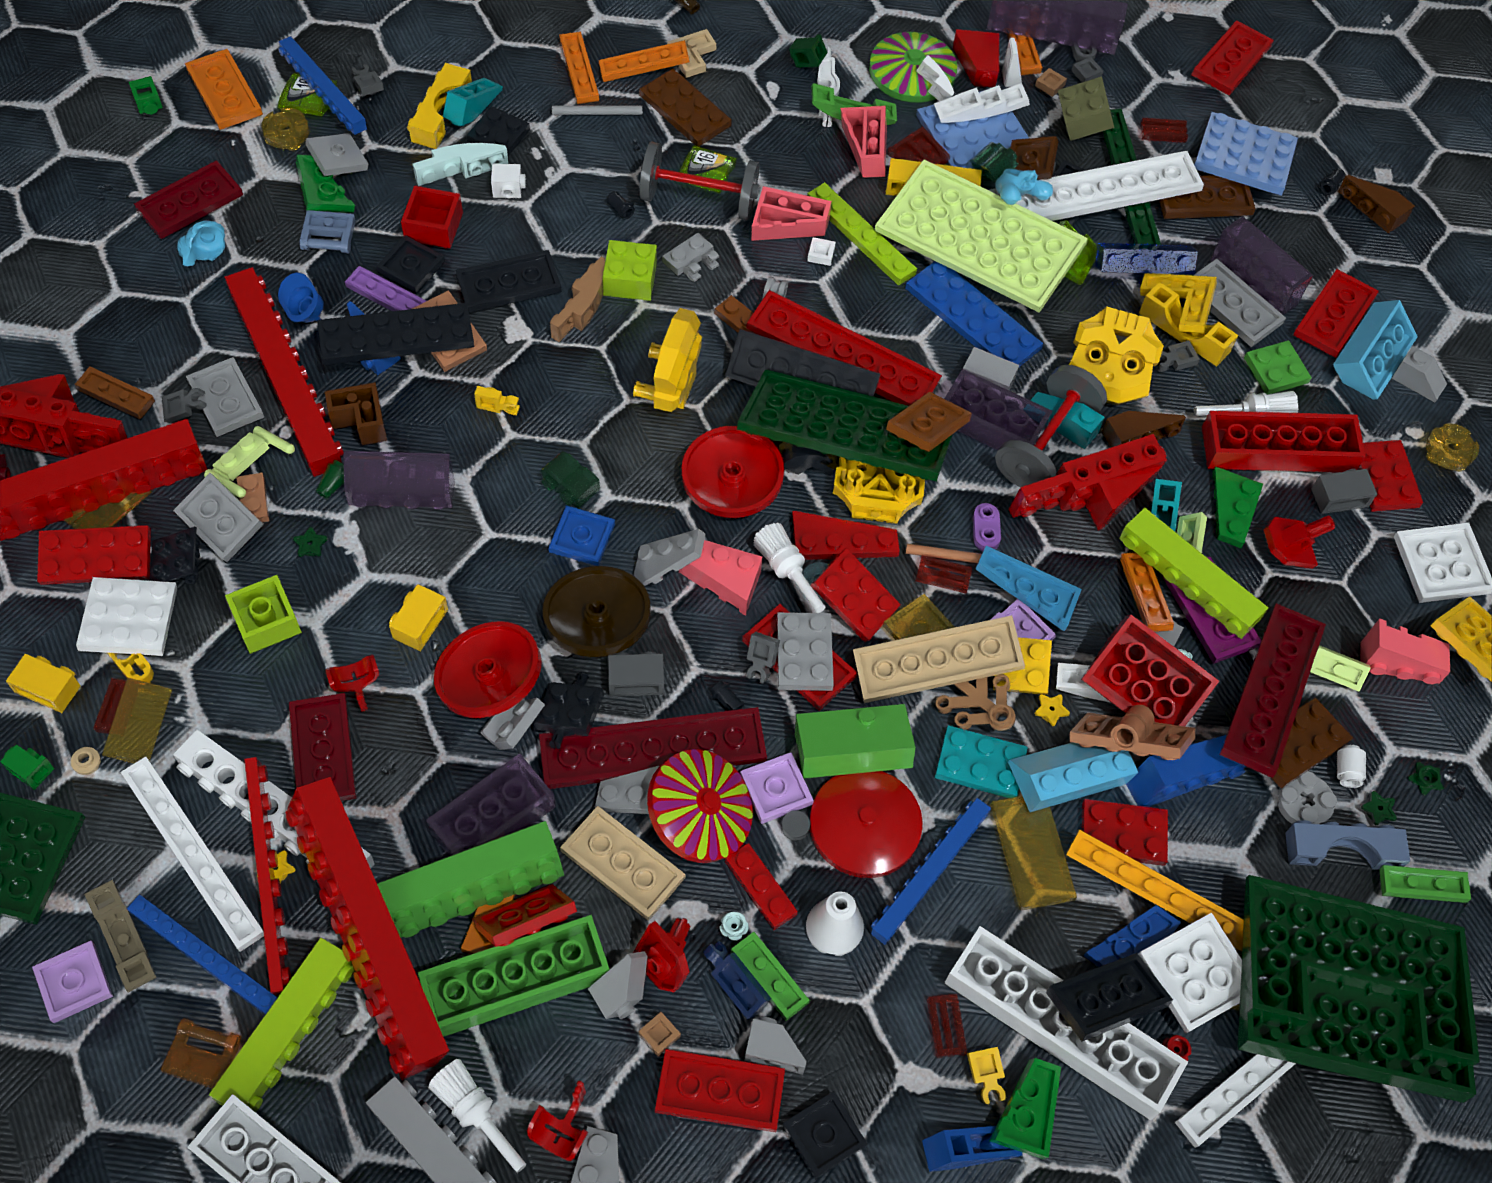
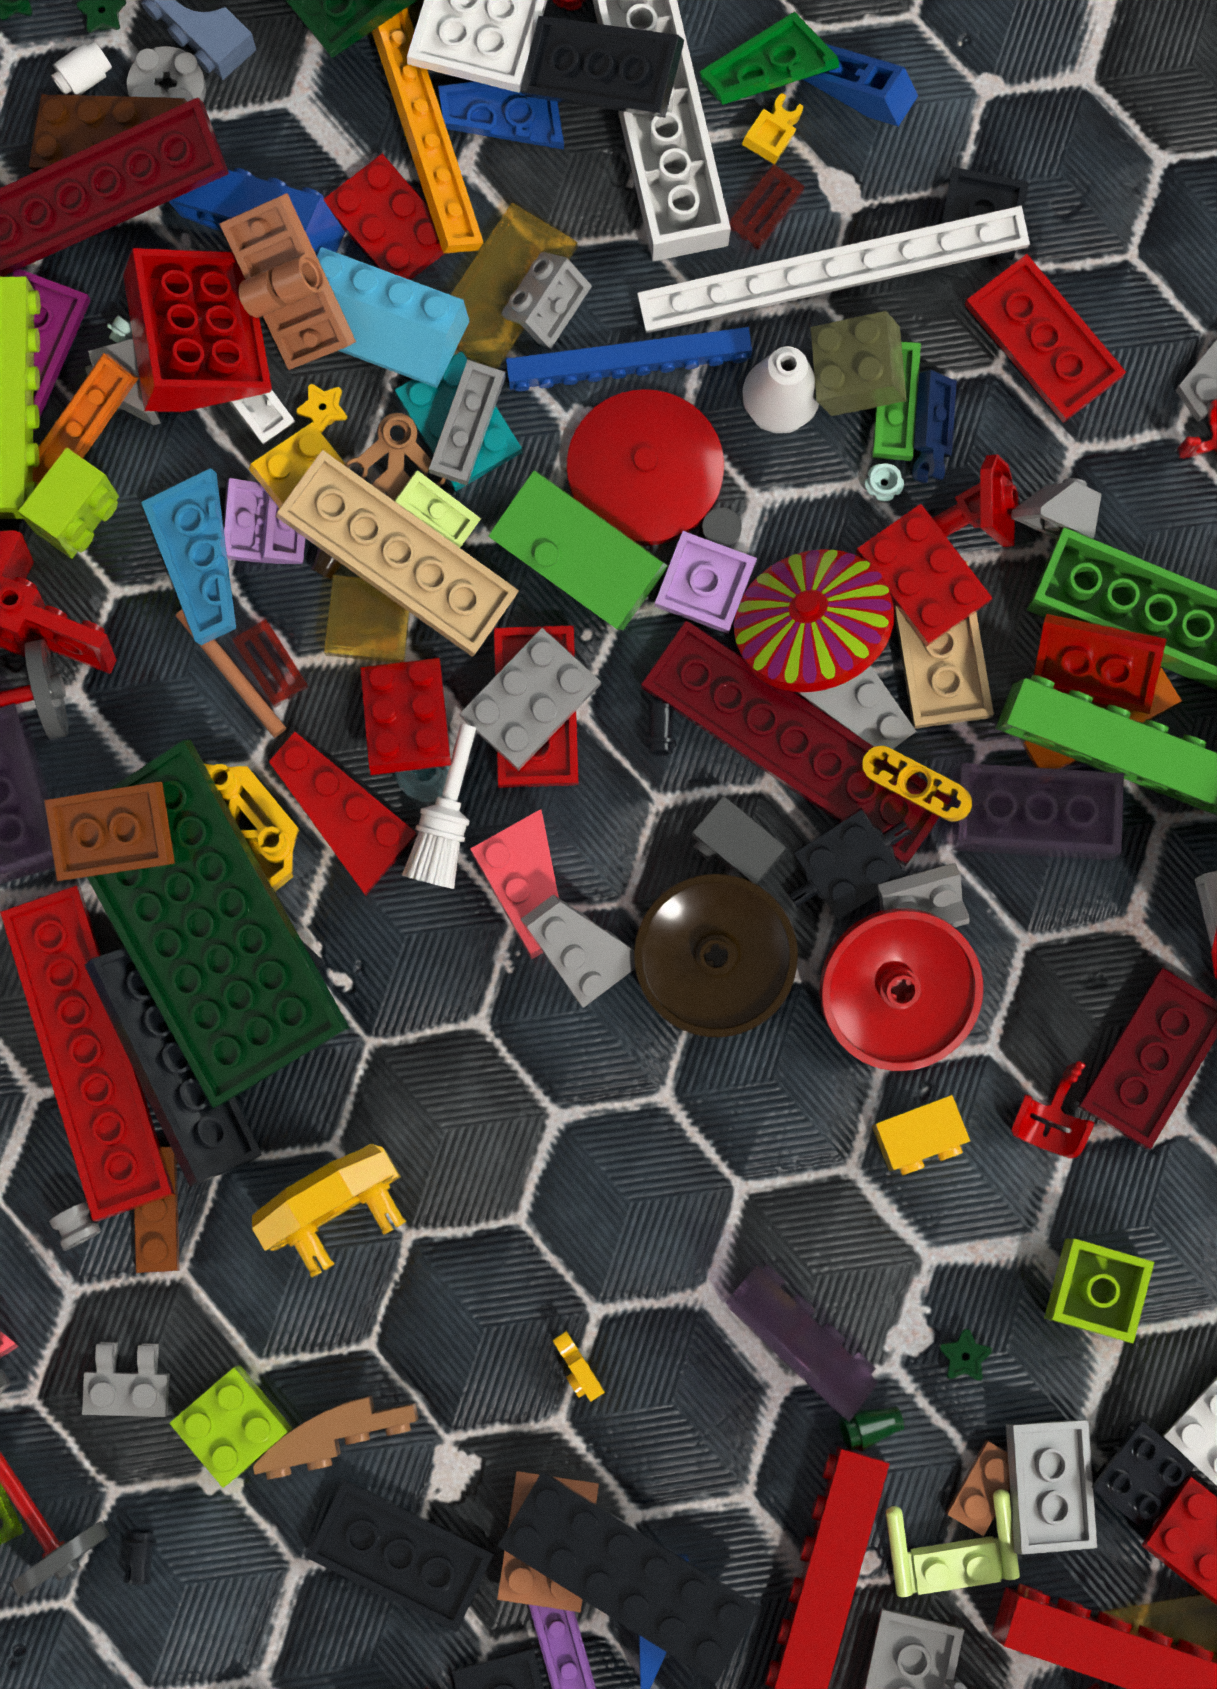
camera: 135 degrees left, 20 degrees up
(359, 407) = (754, 1496): reddish brown brick -> none
(557, 773) = (936, 806): none -> yellow beam
(570, 480) = (588, 1169): clear green brick -> none
(582, 535) = (637, 1084): blue tile -> none
(659, 1034) = (1056, 441): medium nougat plate -> none
(664, 885) = (925, 575): none -> red plate
(732, 472) = (400, 997): red dish -> none
(761, 886) = (818, 495): red plate -> none
(763, 653) = (582, 734): dark grey plate -> none
(772, 1046) = (960, 331): light grey slope -> none
(807, 966) = (858, 363): none -> olive brick
(870, 1019) = (833, 269): none -> white plate
(942, 699) = (437, 509): none -> yellowish green plate
(974, 753) = (467, 422): none -> light grey plate
(986, 525) = (163, 677): medium lavender plate -> none
(1004, 859) = (547, 298): none -> light grey bracket
(1109, 553) = (70, 504): none -> lime brick

